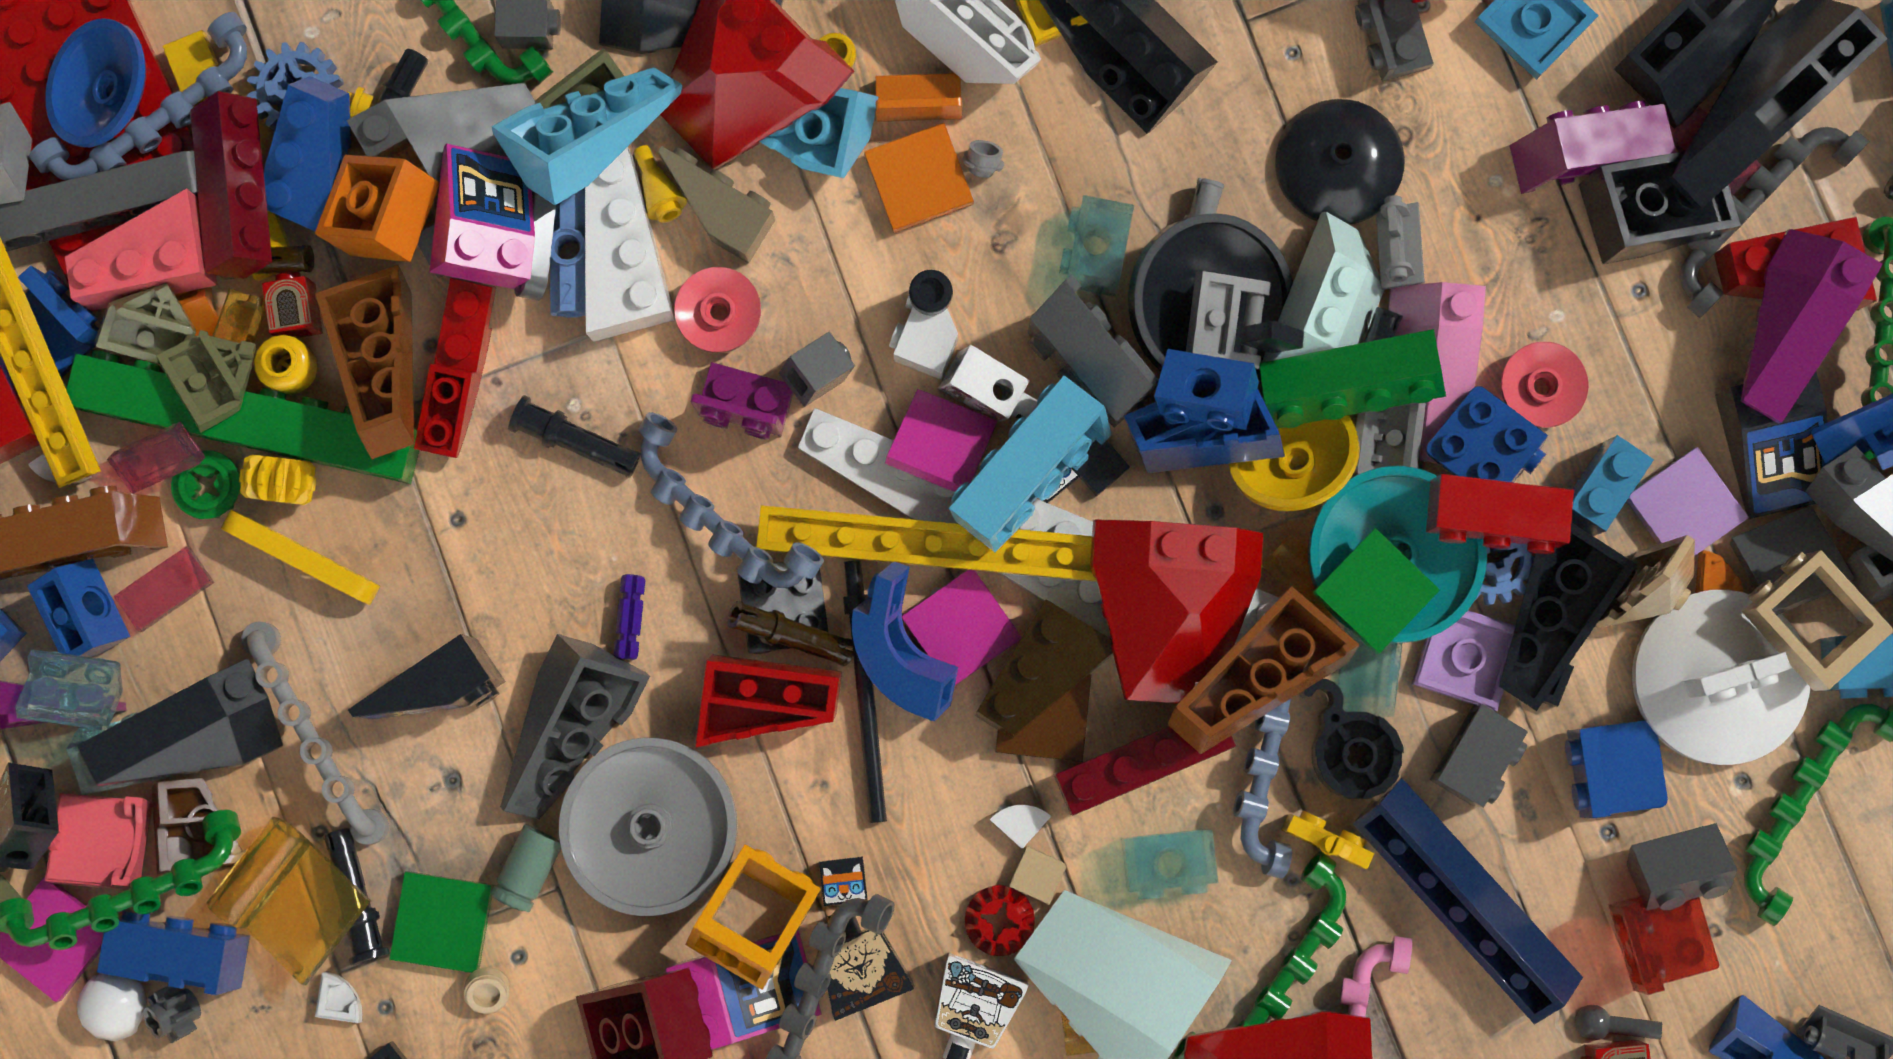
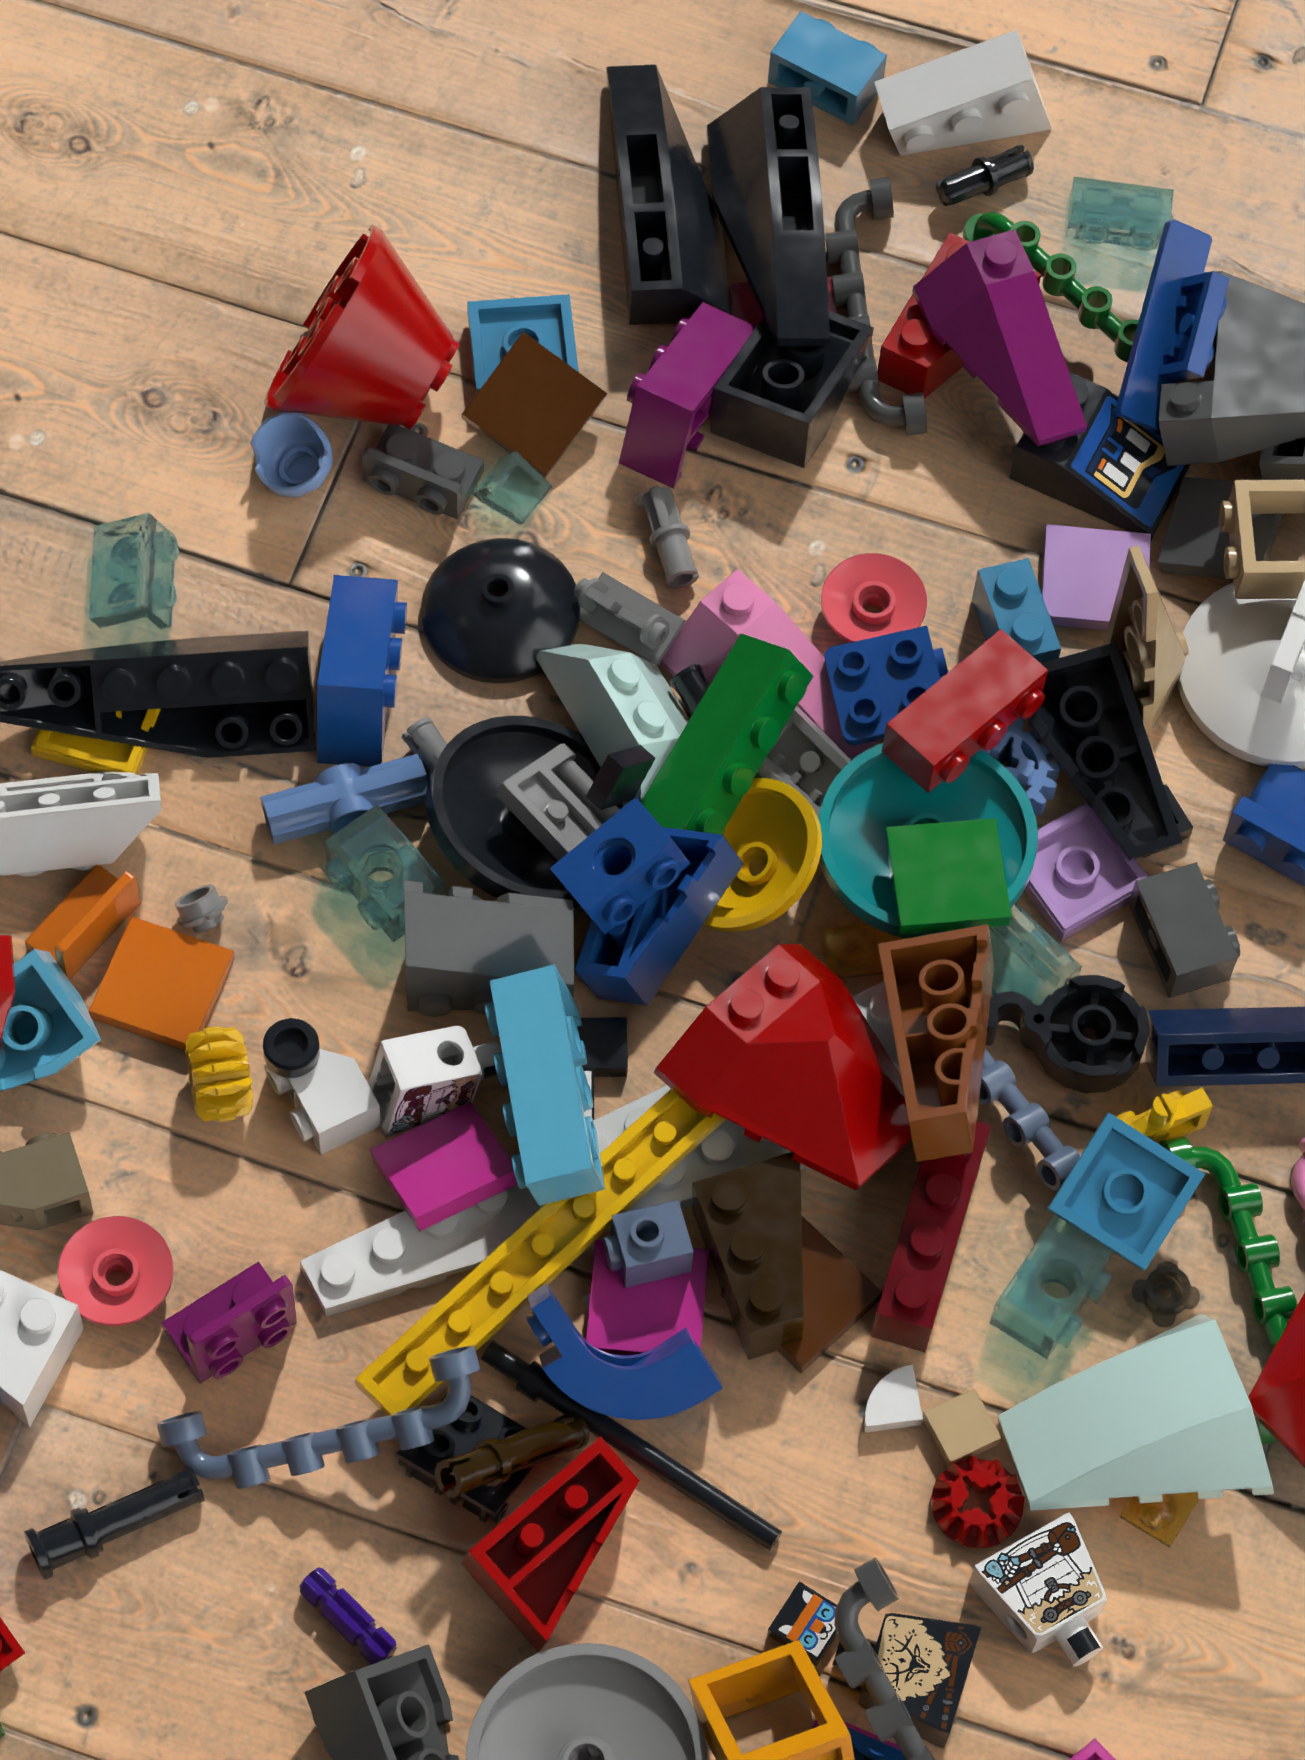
camera: 55 degrees left, 20 degrees down
(817, 368) = (265, 1222): dark grey brick -> none
(883, 263) = (219, 1074): none -> yellow gear
(988, 603) = (649, 1244): none -> sand blue brick
(1127, 179) = (342, 796): none -> medium blue piece
(1219, 112) = (357, 669): none -> blue wedge
(1236, 922) = (1166, 1277): none -> clear smoke plate
(1261, 861) = (1126, 1191): none -> dark azure plate
(1431, 96) = (512, 487): none -> clear light blue slope
(1481, 221) = (669, 537): none -> light grey axle
(1497, 62) = (534, 404): none -> reddish brown tile
(1715, 574) = (1182, 602): orange tile -> none

